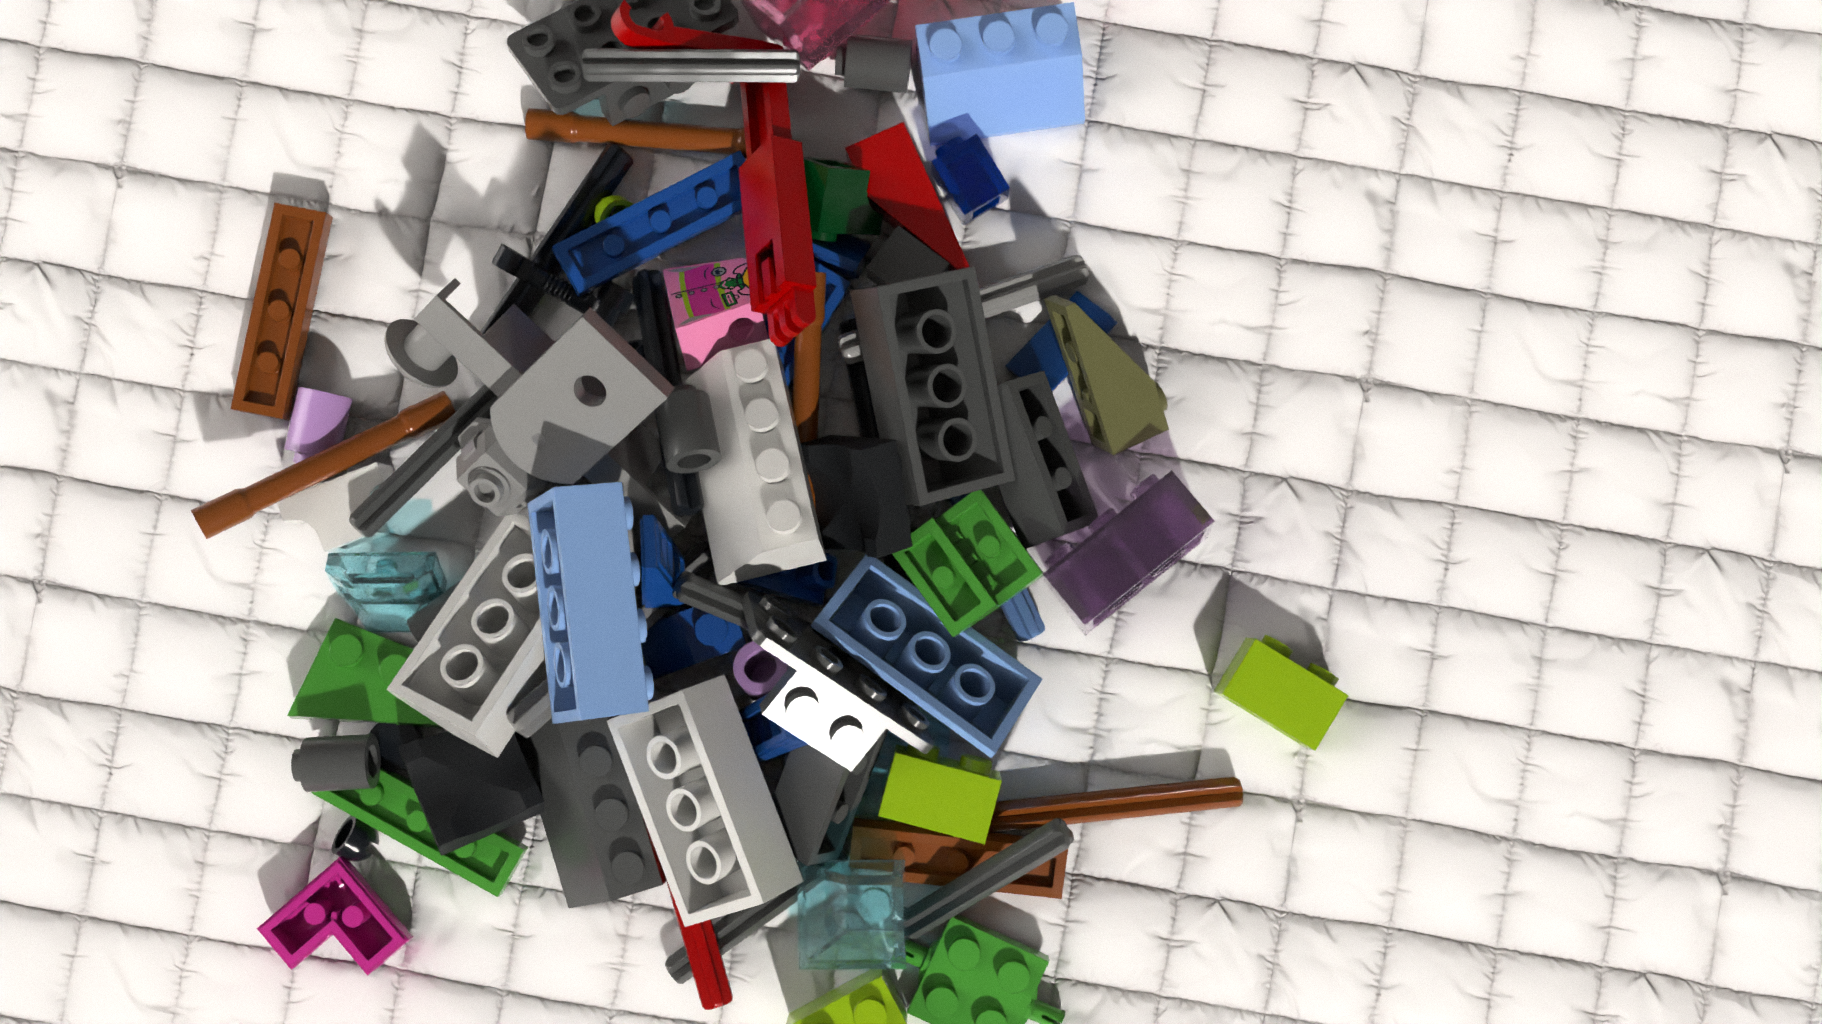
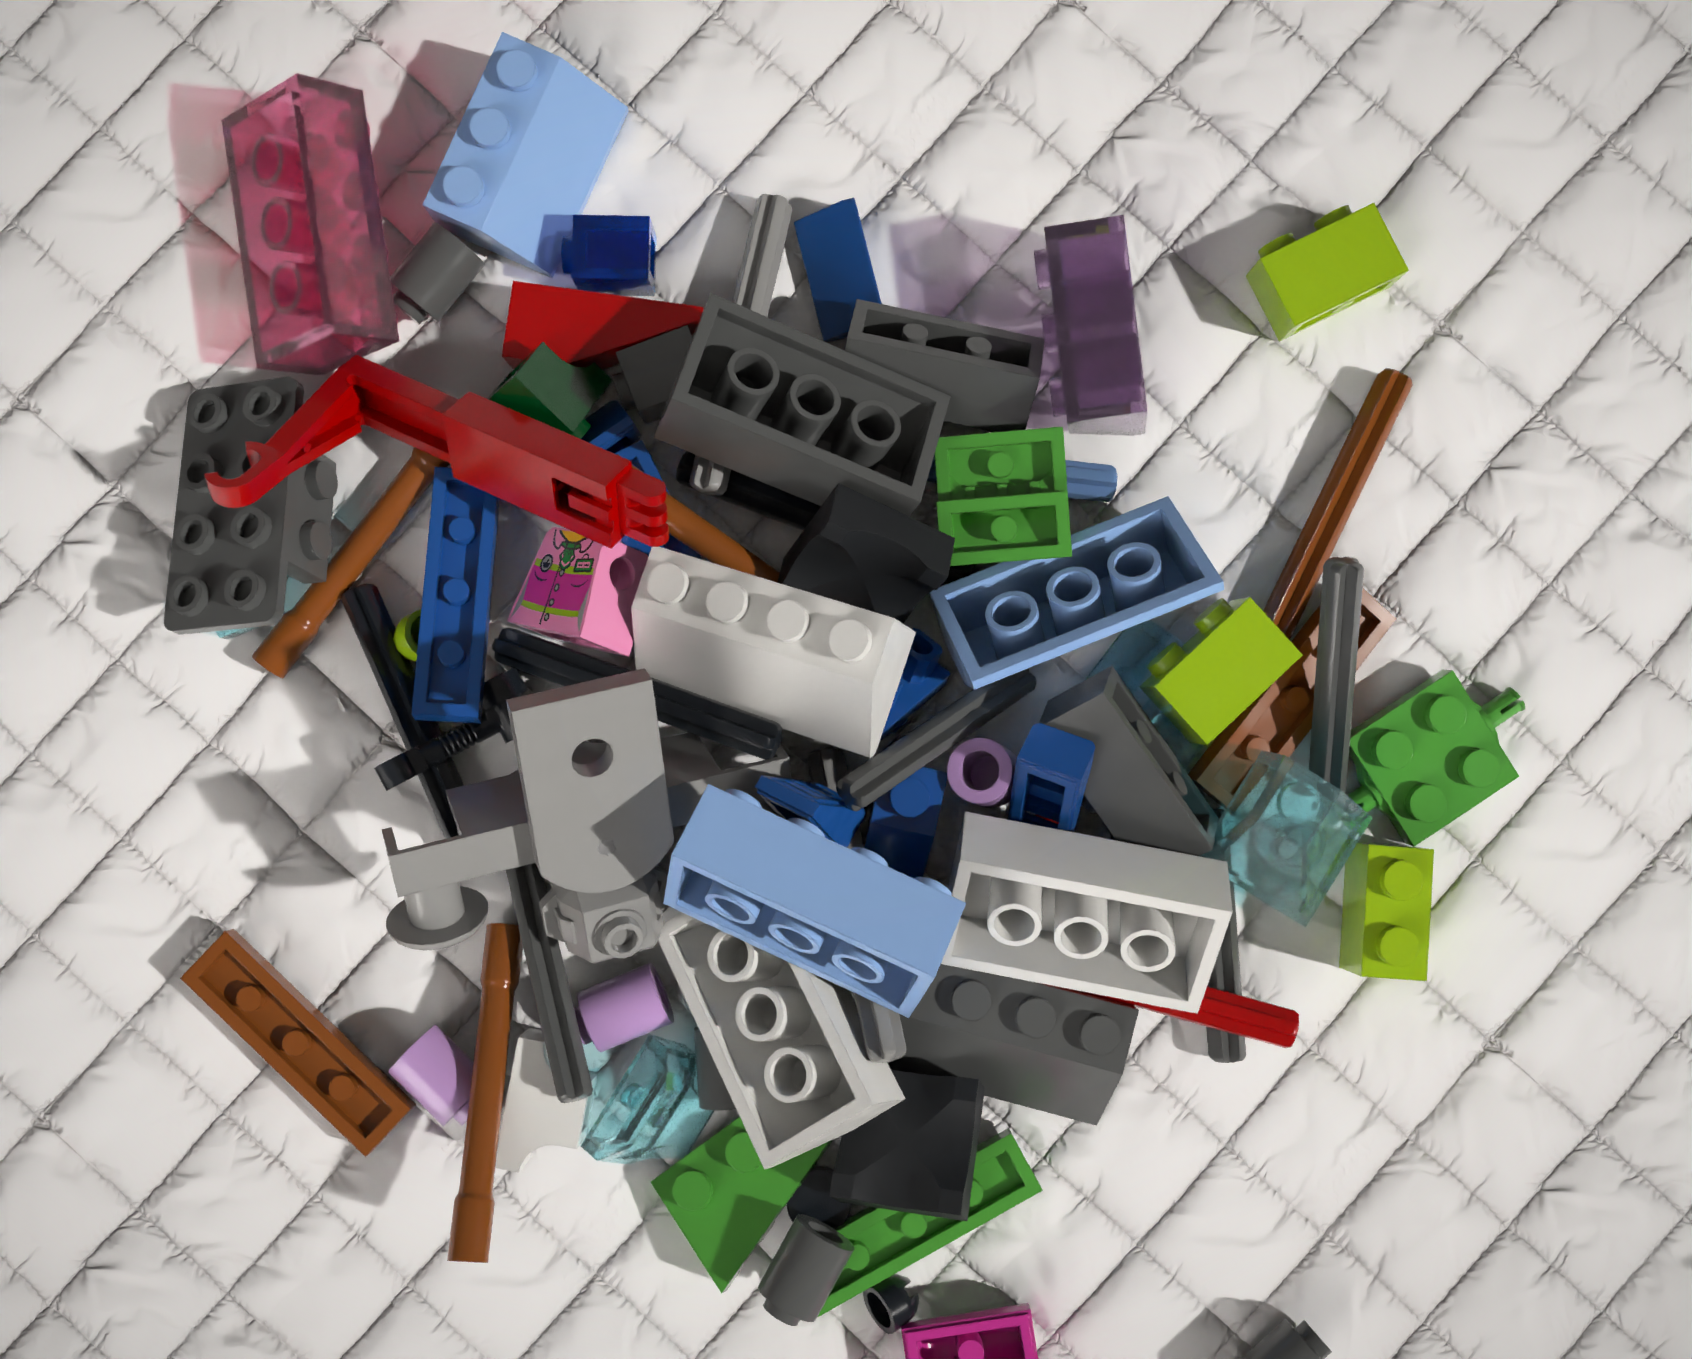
camera: 60 degrees left, 0 degrees up
(443, 522) = (623, 1008): none -> lavender brick
(688, 430) = (696, 689): dark grey brick -> none
(690, 65) = (316, 452): dark grey axle -> none
(827, 694) = (1057, 714): dark grey bracket -> none
(1113, 392) = (917, 242): olive slope -> none

